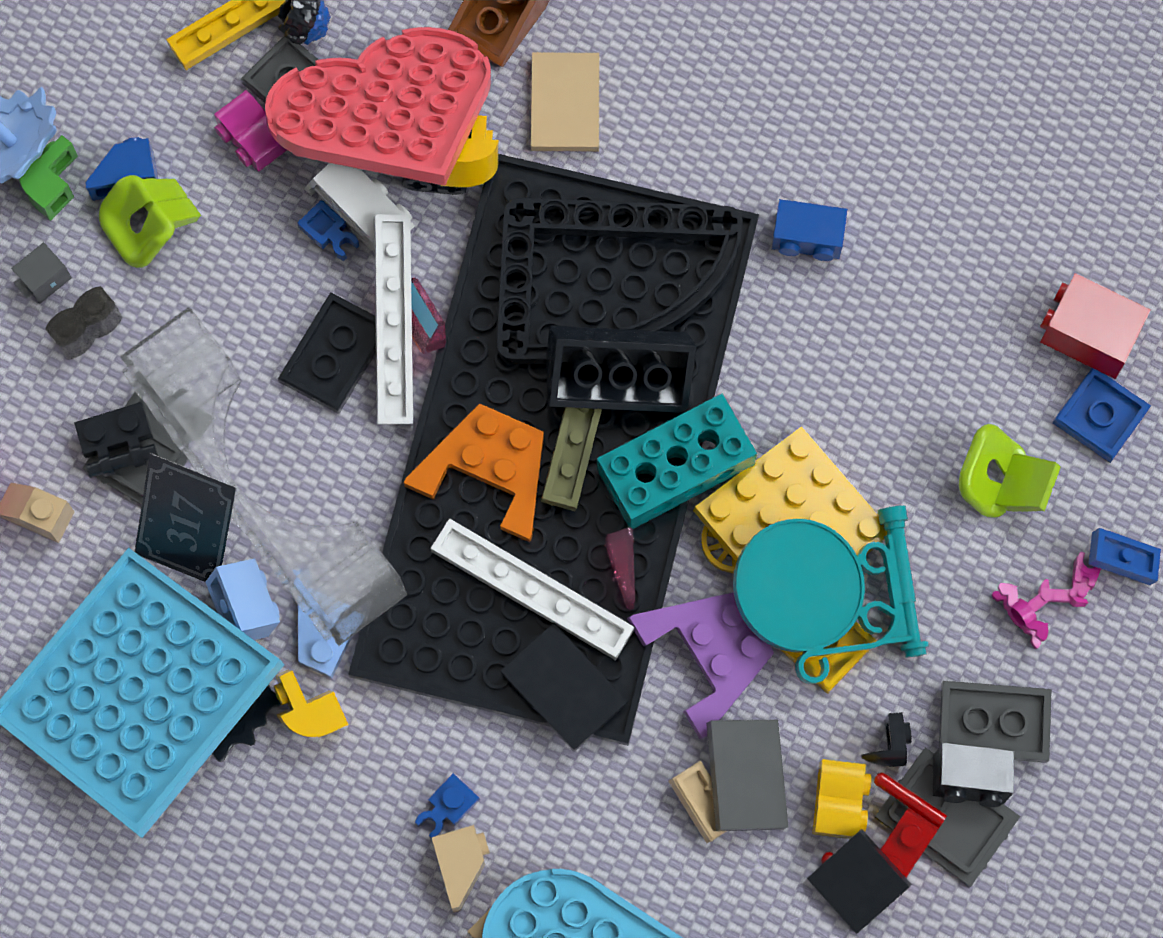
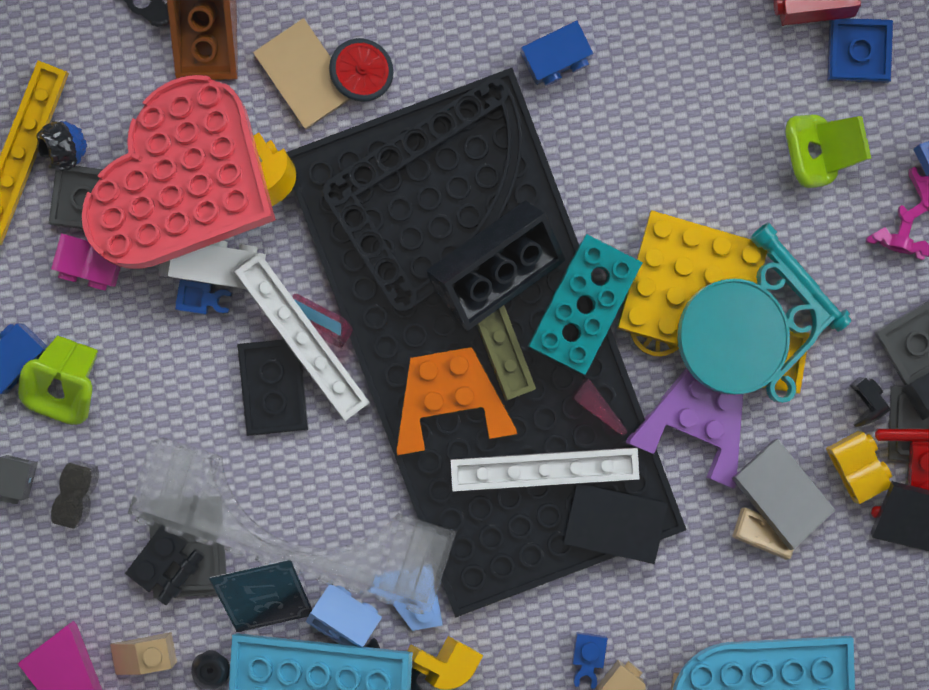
camera: 35 degrees left, 15 degrees up
(86, 579) = (213, 660): none -> black plate
(619, 130) = (361, 69): none -> red wheel

